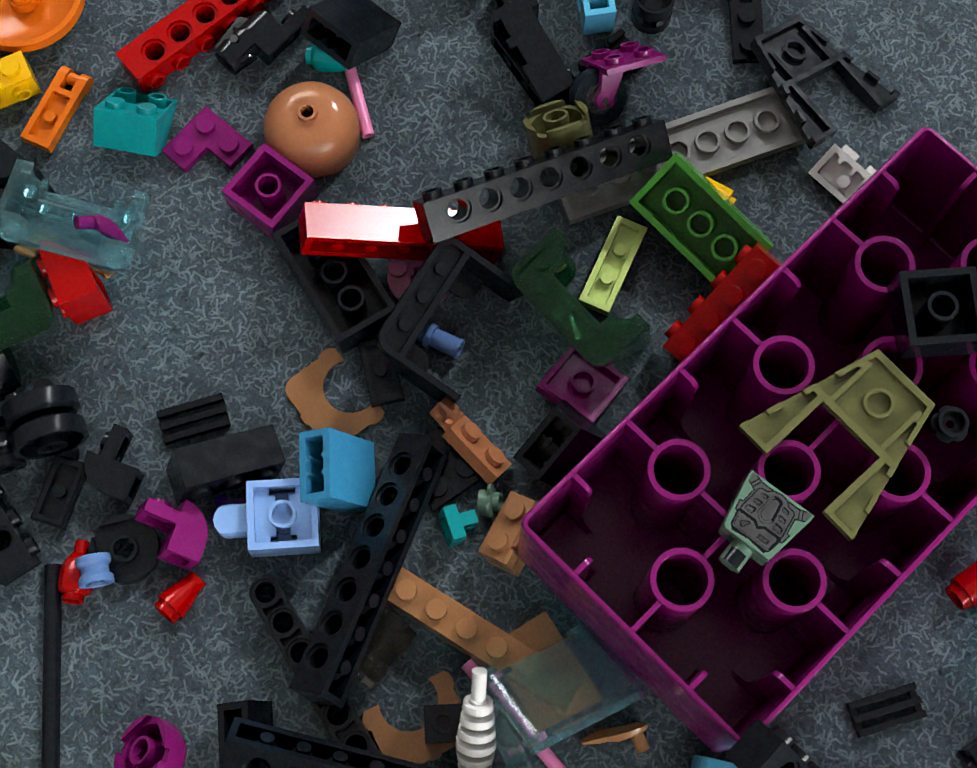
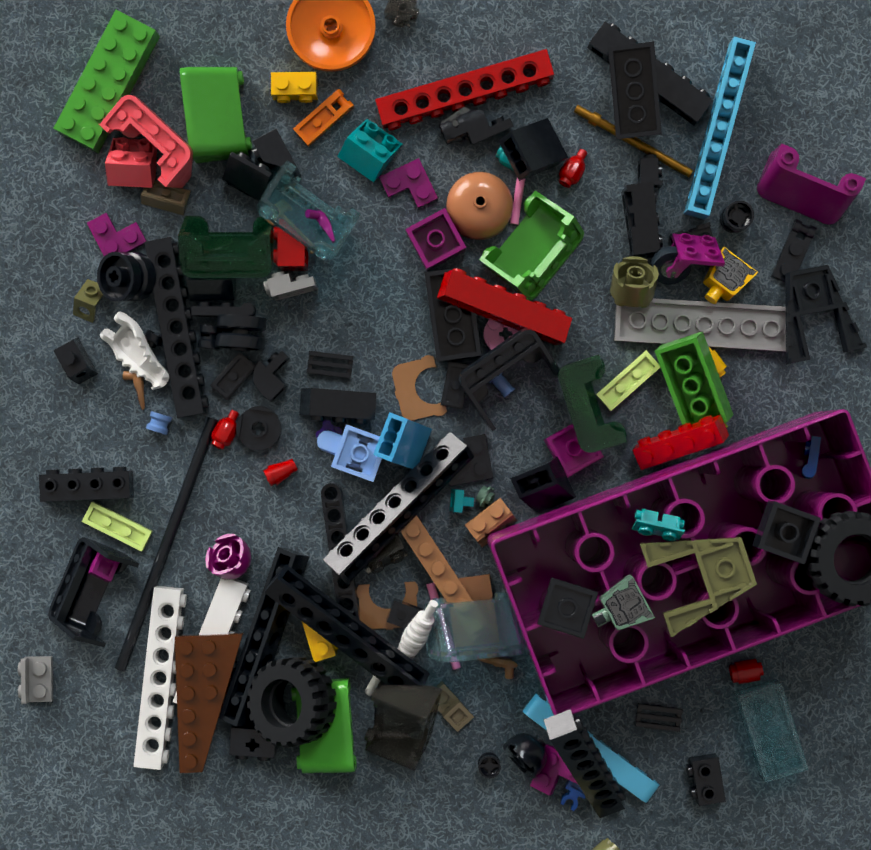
camera: 20 degrees right, 15 degrees up
(90, 337) = (283, 286): none -> light grey plate
(94, 570) = (237, 437): medium blue wheel -> none
(183, 528) = (297, 435): magenta brick -> none
(412, 144) = (535, 247): none -> bright green windscreen
(415, 39) = (572, 169): none -> red plant
(470, 441) = (489, 455): nougat hinge -> none
(650, 148) = (663, 321): black brick -> none
(678, 81) = (727, 280): none -> torso
(678, 565) = (567, 608): none -> black plate
(768, 385) = (669, 528): none -> teal hinge
(841, 172) = (803, 389): white bracket -> none
(906, 230) = (812, 450): none -> blue plate
(957, 417) = (765, 601): black plate -> none

